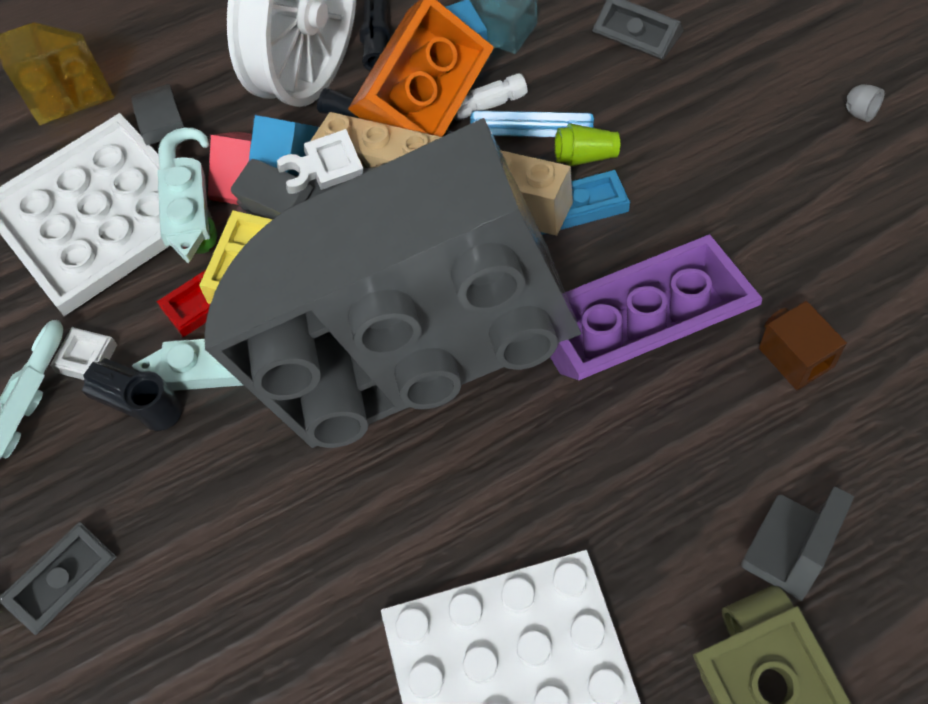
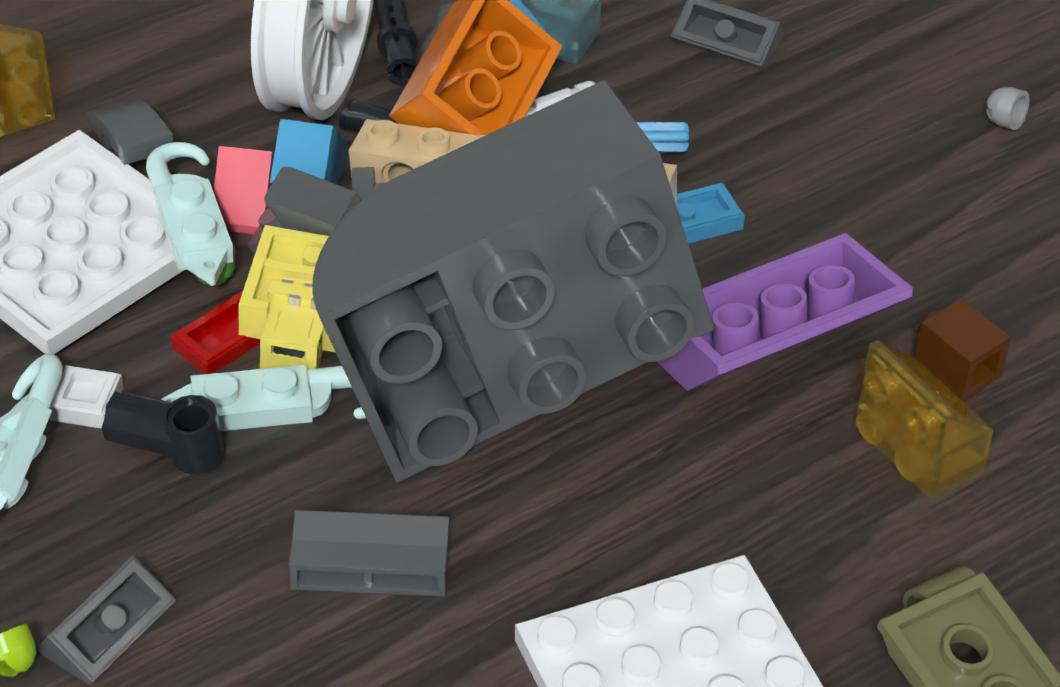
camera: 15 degrees left, 15 degrees down
(273, 526) = (369, 553): none -> dark grey piece
(327, 160) = (370, 165): white plate -> none
(585, 144) = (691, 154): lime cone -> none
(756, 423) = (919, 422): none -> clear yellow slope
(796, 542) = (978, 535): dark grey panel -> none

